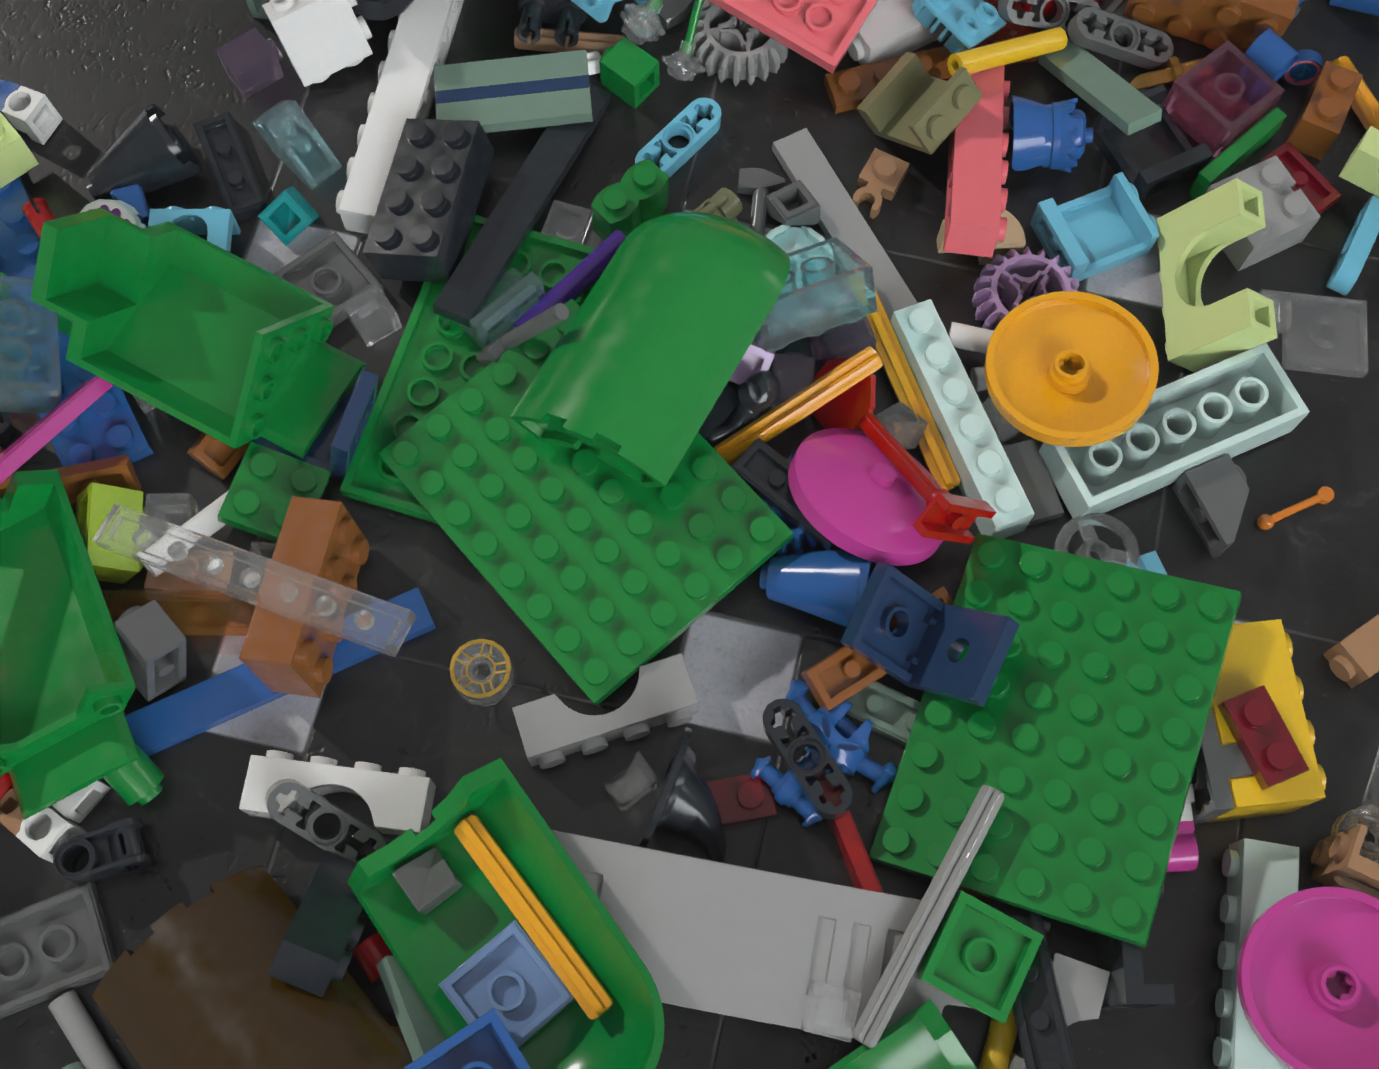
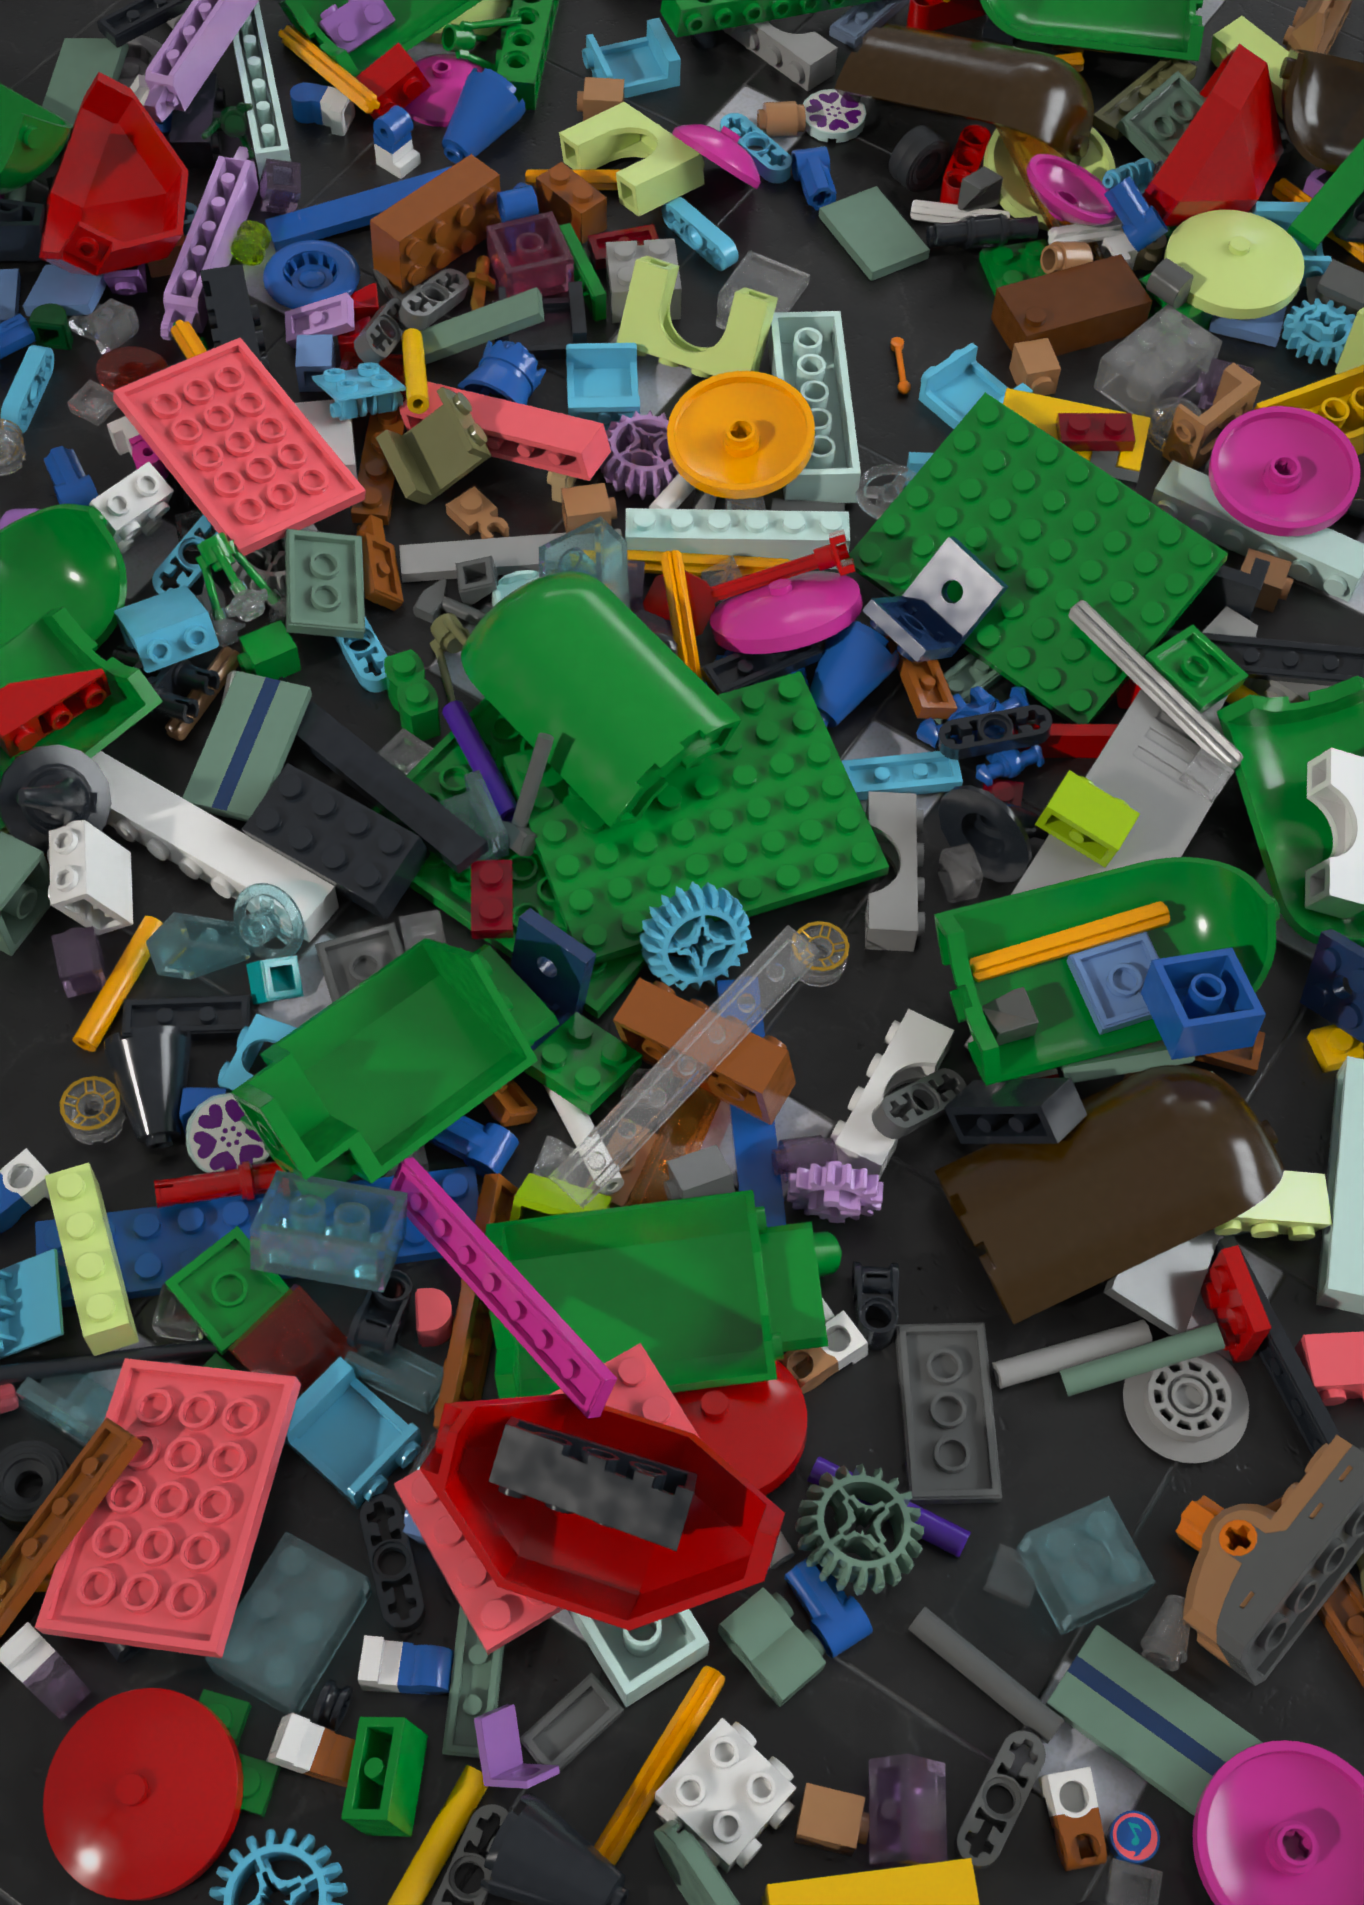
camera: 70 degrees left, 10 degrees down
(105, 124) = (99, 1095): none -> clear wheel
(167, 446) = (478, 1145): none -> blue piece
(194, 773) = (835, 1191): none -> lavender gear
(236, 733) = (802, 1153): none -> clear purple brick
(240, 101) = (116, 987): none -> light orange piece
(327, 180) = (265, 924): none -> clear light blue piece
(424, 353) = (492, 899): none -> dark red plate
(435, 543) = (682, 928): none -> medium azure gear
(690, 887) = (1087, 818): none -> lime brick
(715, 79) = (324, 584): none -> sand green tile
(729, 680) = (904, 774): none -> medium azure plate
(772, 119) = (379, 565): none -> dark orange hinge
(927, 270) = (585, 504): none -> medium nougat brick
(1190, 1015) = (1276, 582): none -> medium nougat brick
(1214, 501) = (883, 406): dark grey slope -> none
(1292, 585) = (958, 384): none -> medium azure panel

